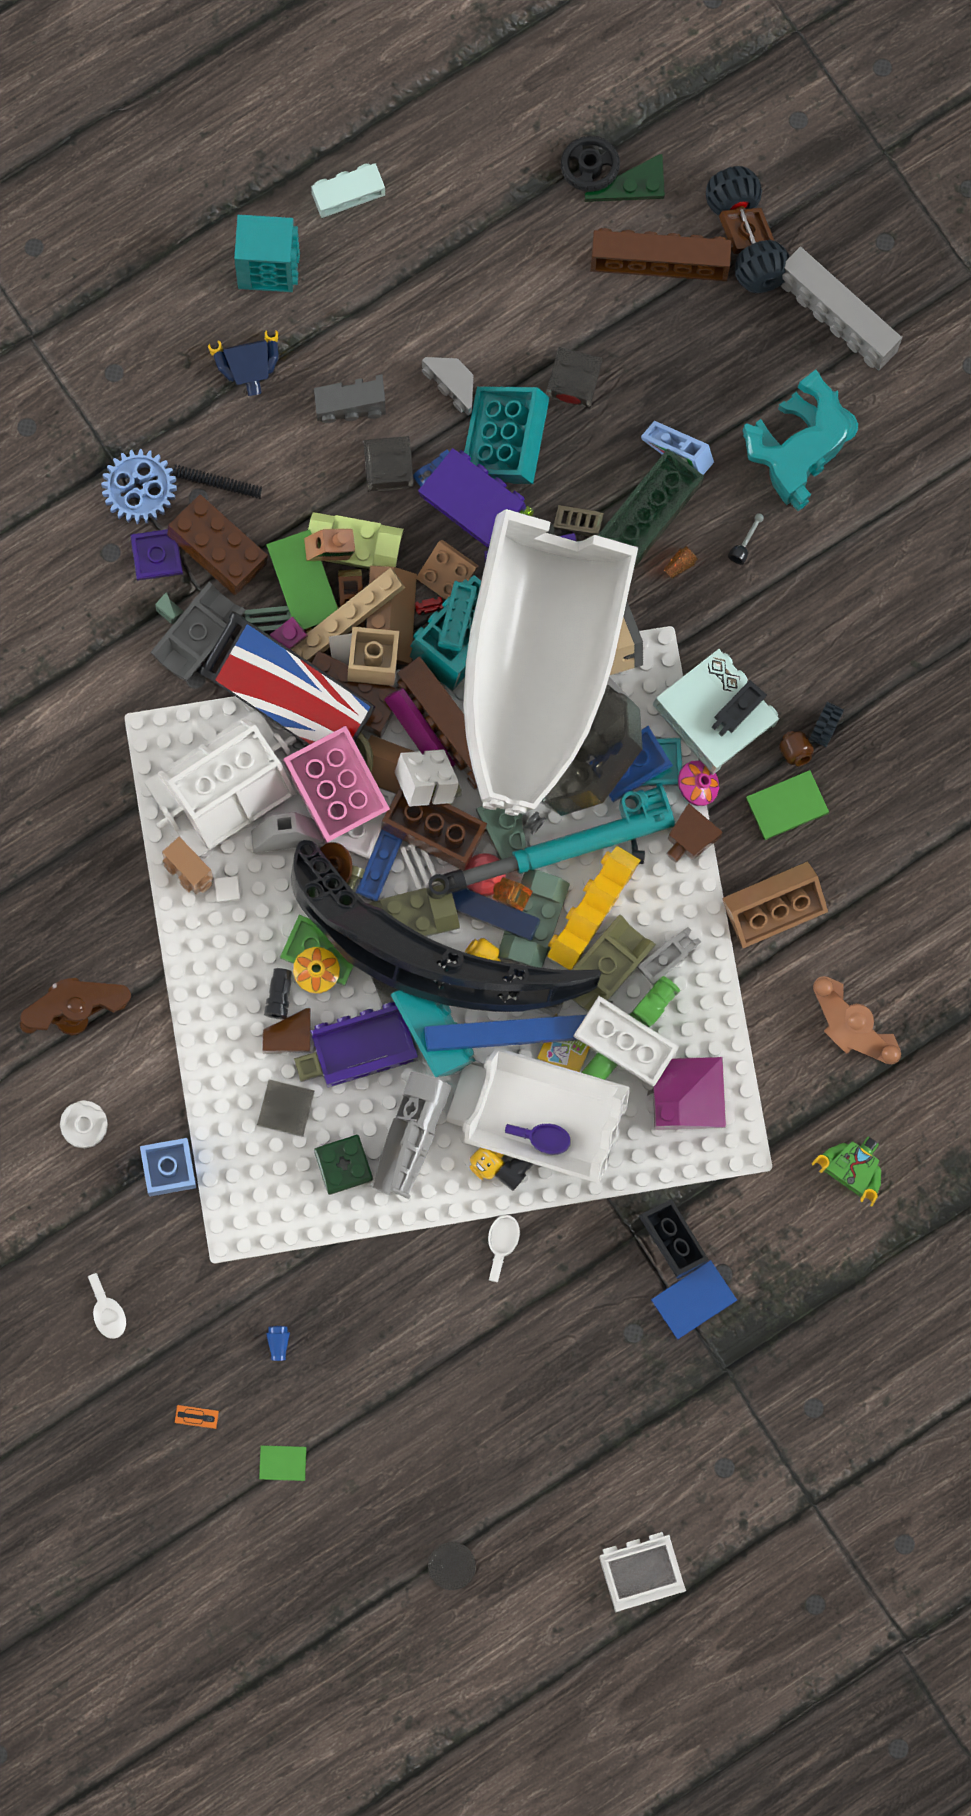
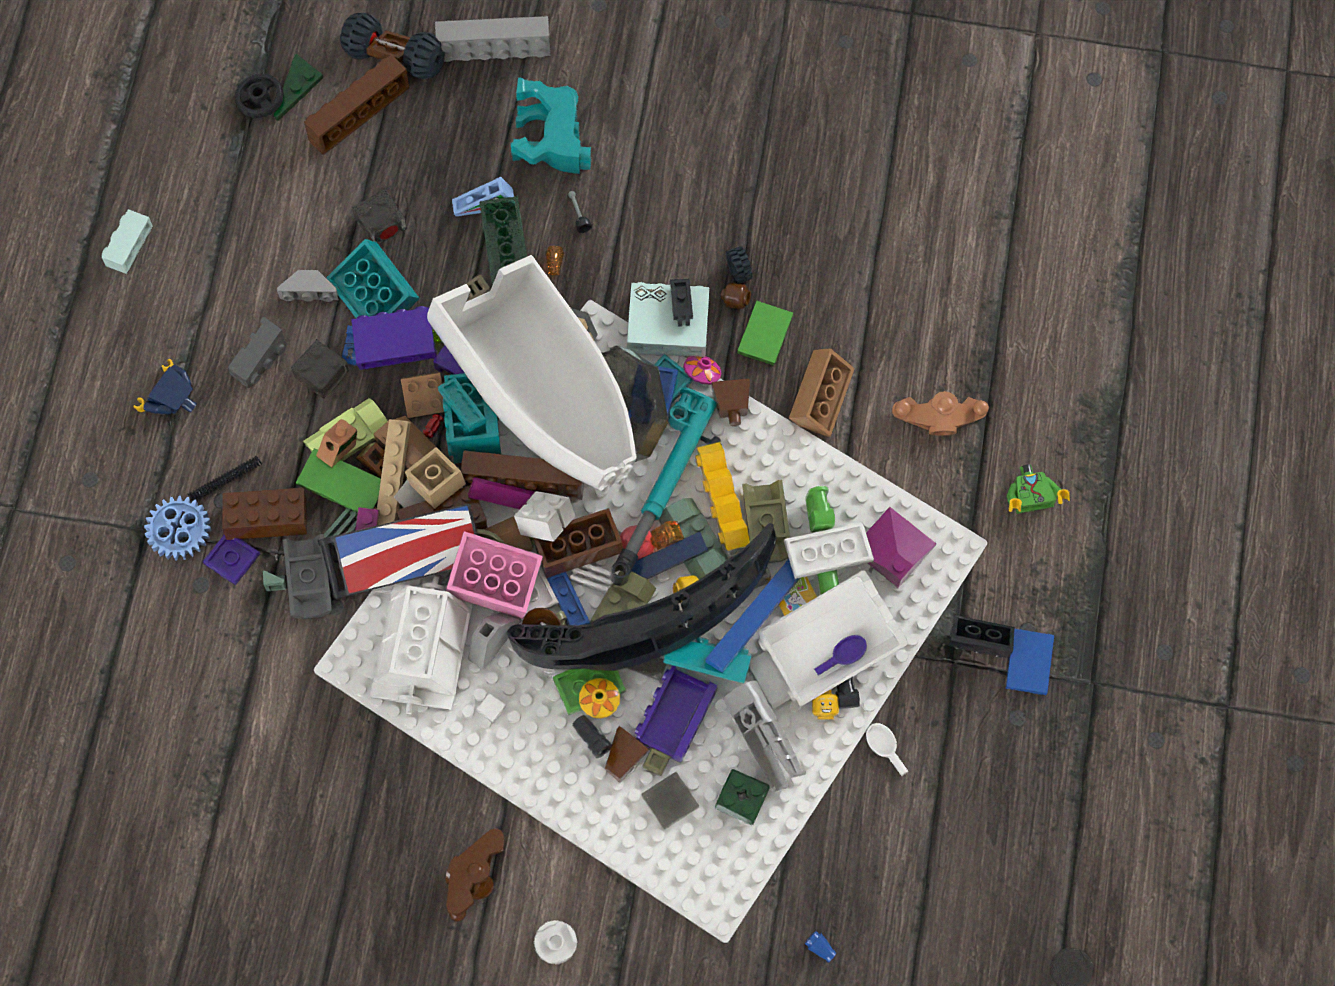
camera: 45 degrees left, 10 degrees down
(168, 1167) = (638, 911): light blue brick -> none
(185, 863) = (454, 716): medium nougat brick -> none
(266, 253) = (116, 314): teal brick -> none
(503, 830) = (621, 504): sand green wing -> none
(534, 822) = (633, 483): dark grey bush -> none
(641, 1572) = (1183, 851): window -> none
(667, 957) = (795, 482): light grey hinge -> none

